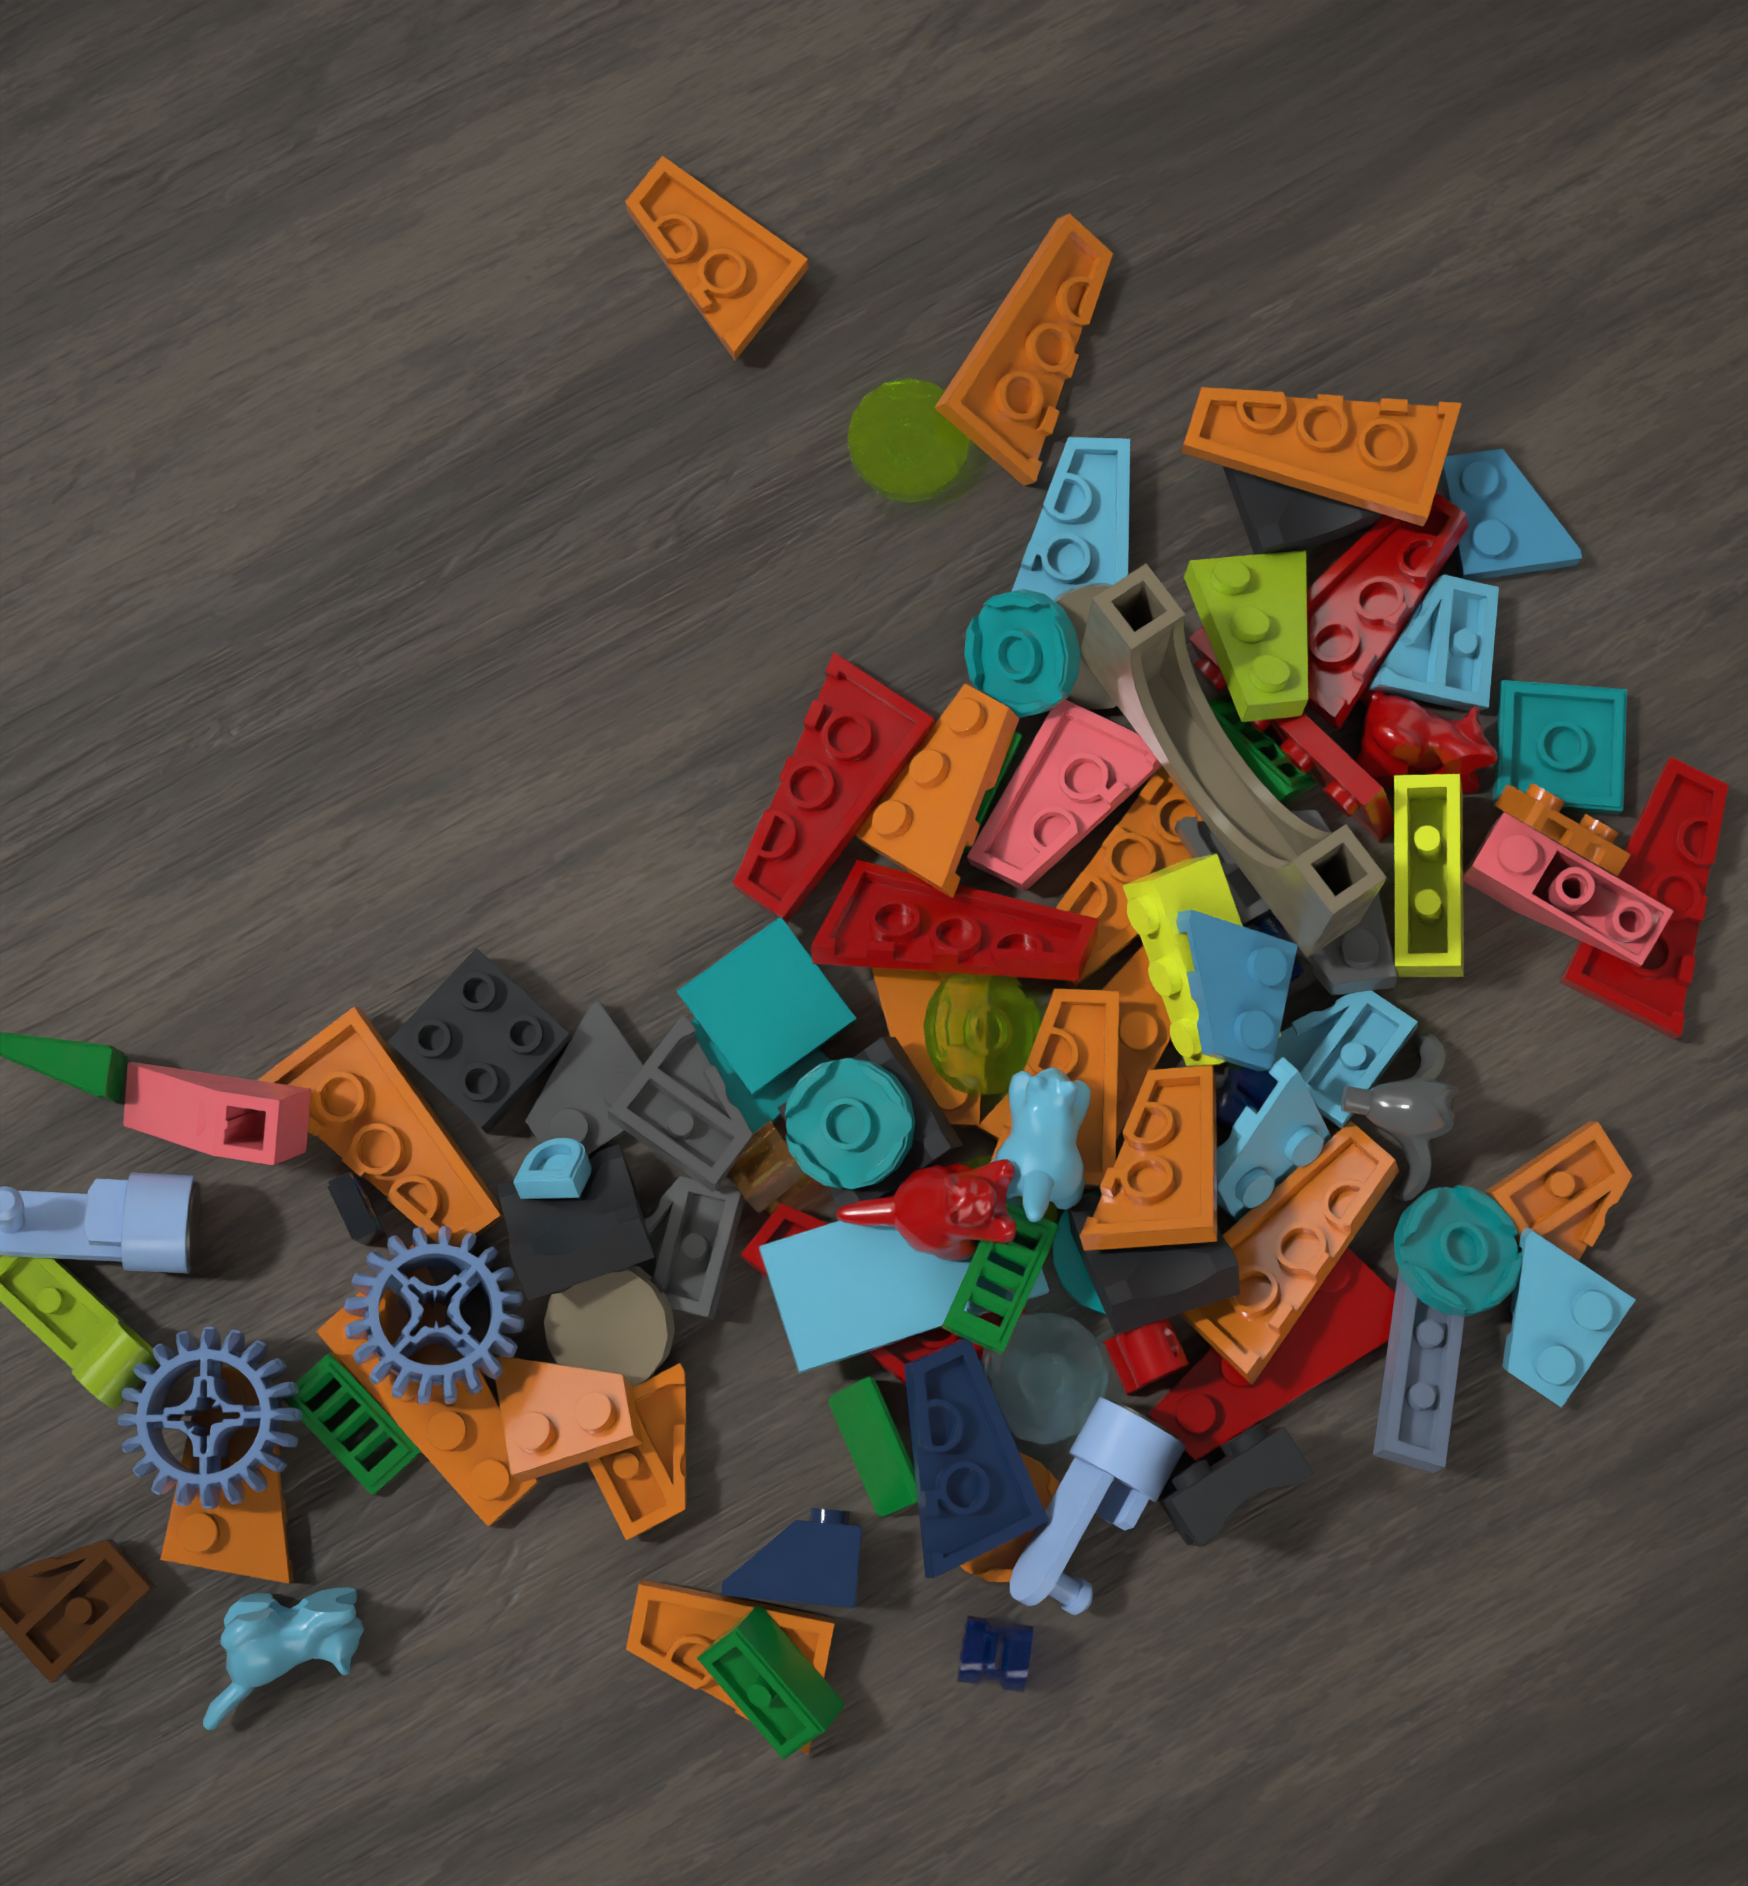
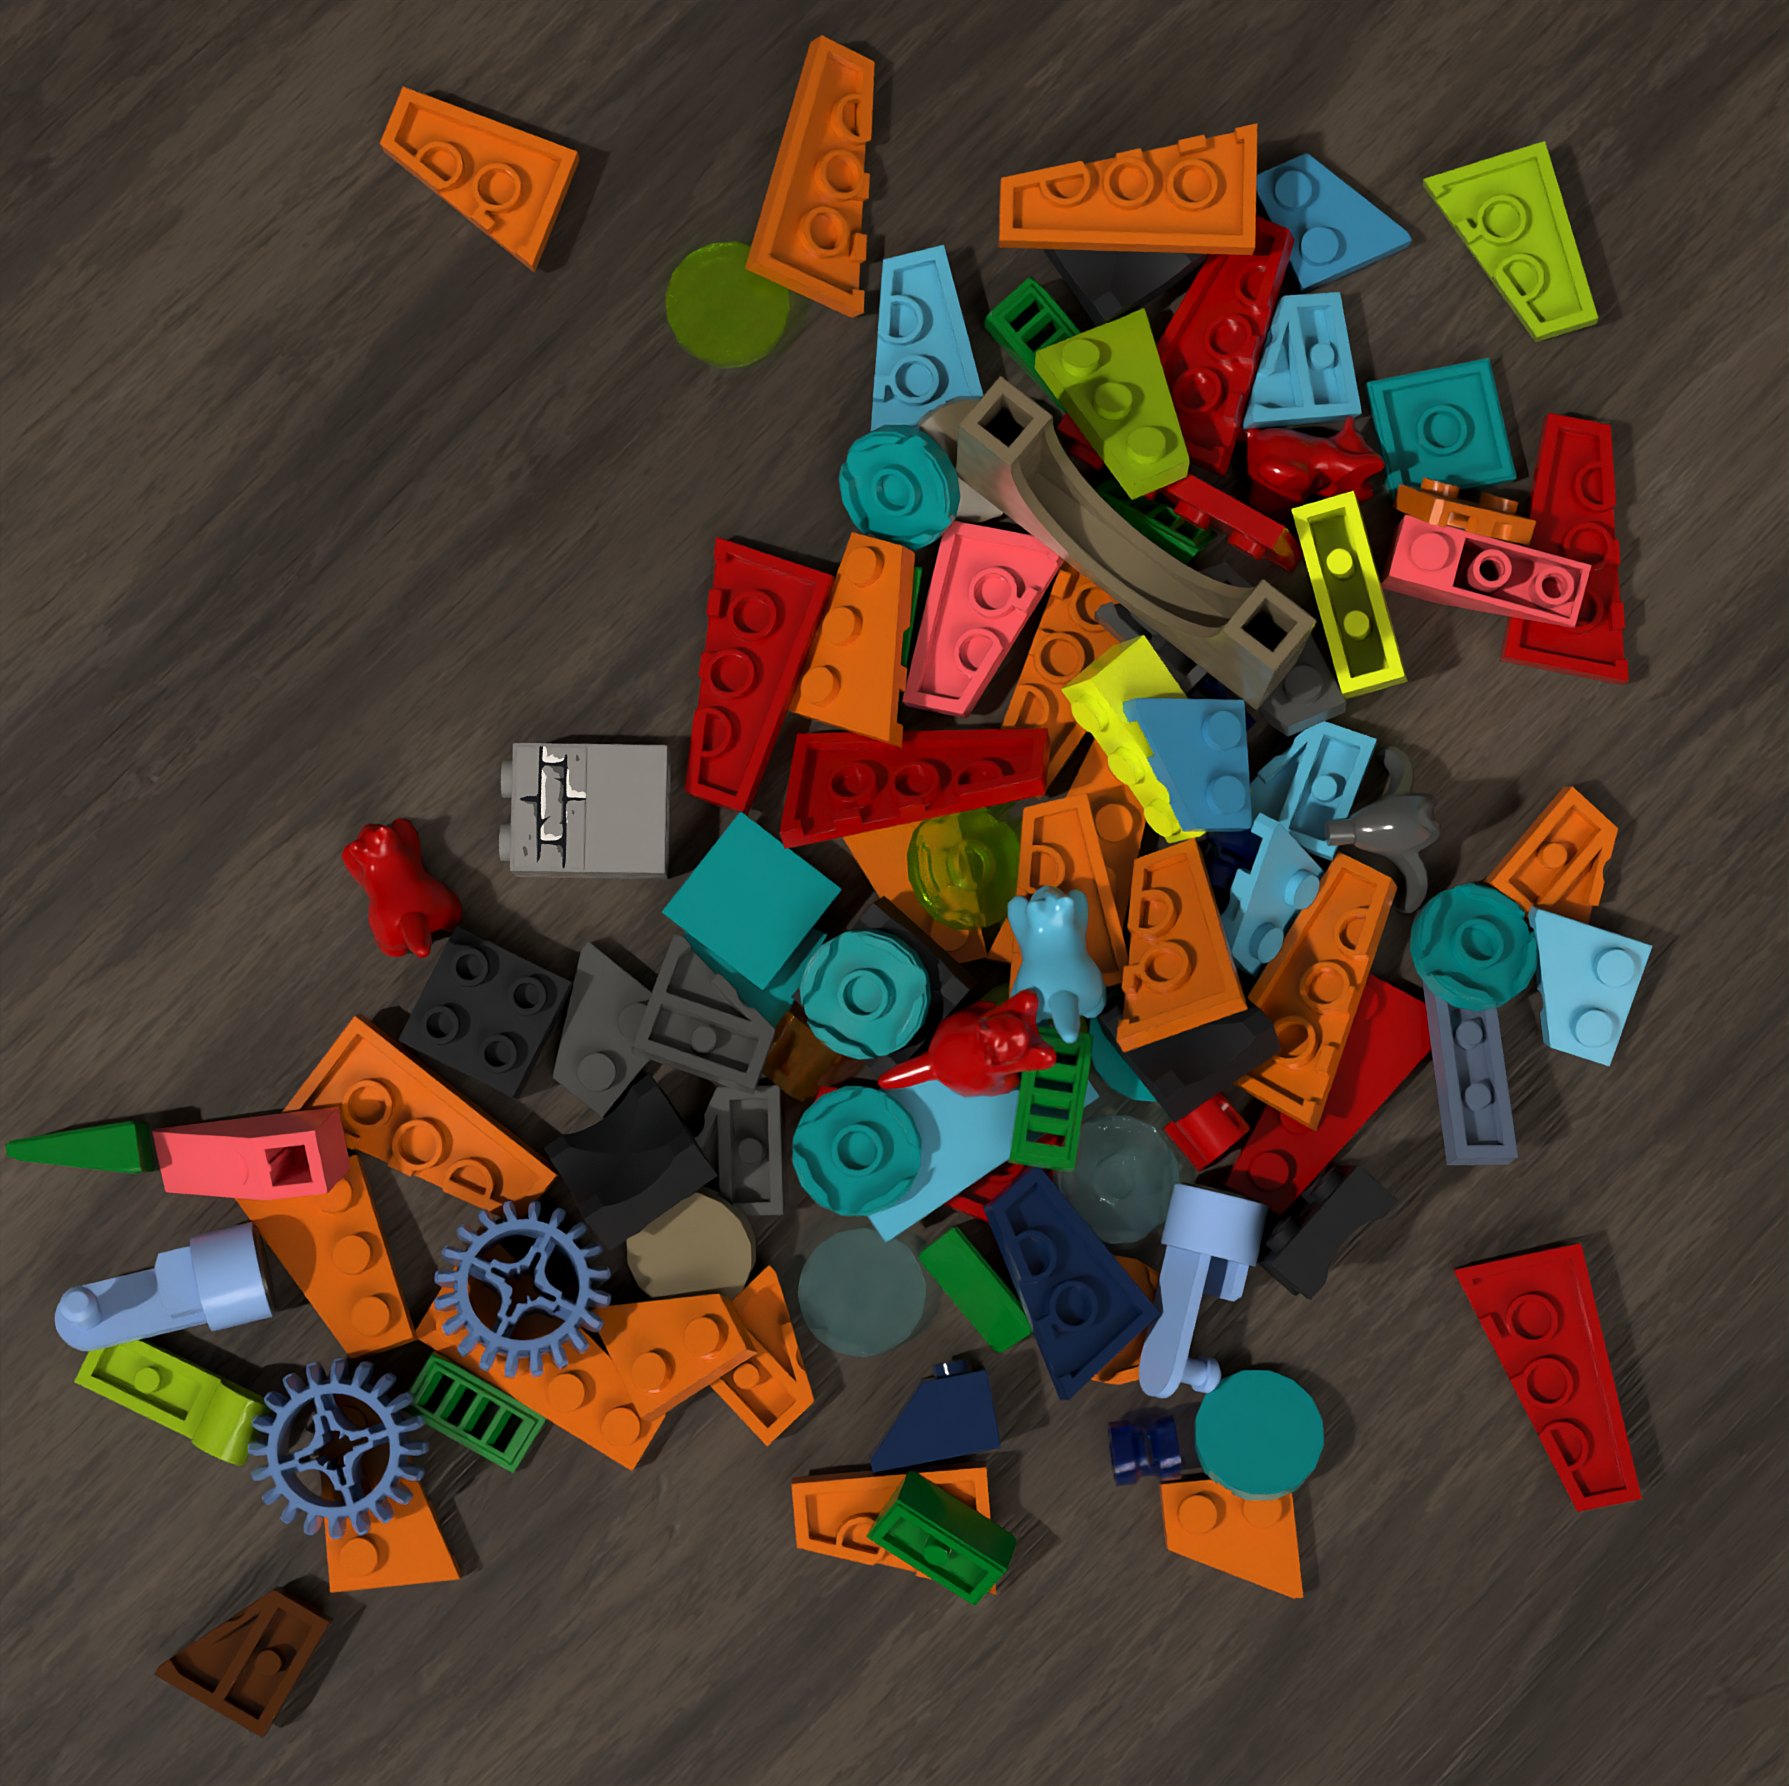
camera: 20 degrees left, 5 degrees up
(268, 1238) = (340, 1261): none -> orange wing
(271, 1639) = (459, 1636): medium azure animal -> none
(356, 1209) = (416, 1208): black tile -> none
(433, 904) = (402, 896): none -> red animal
(554, 1170) = (596, 1118): medium azure tile -> none
(634, 876) = (587, 811): none -> light grey brick
(762, 1417) = (861, 1292): none -> clear light blue tile
(796, 1274) = (856, 1151): none -> teal tile
(1066, 1758) = (1232, 1533): none -> orange wing
(1112, 1671) = (1258, 1435): none -> teal tile
(1172, 550) = (1015, 343): none -> green slope
(1429, 1681) = (1554, 1352): none -> red wing
(1689, 583) = (1520, 236): none -> lime wing

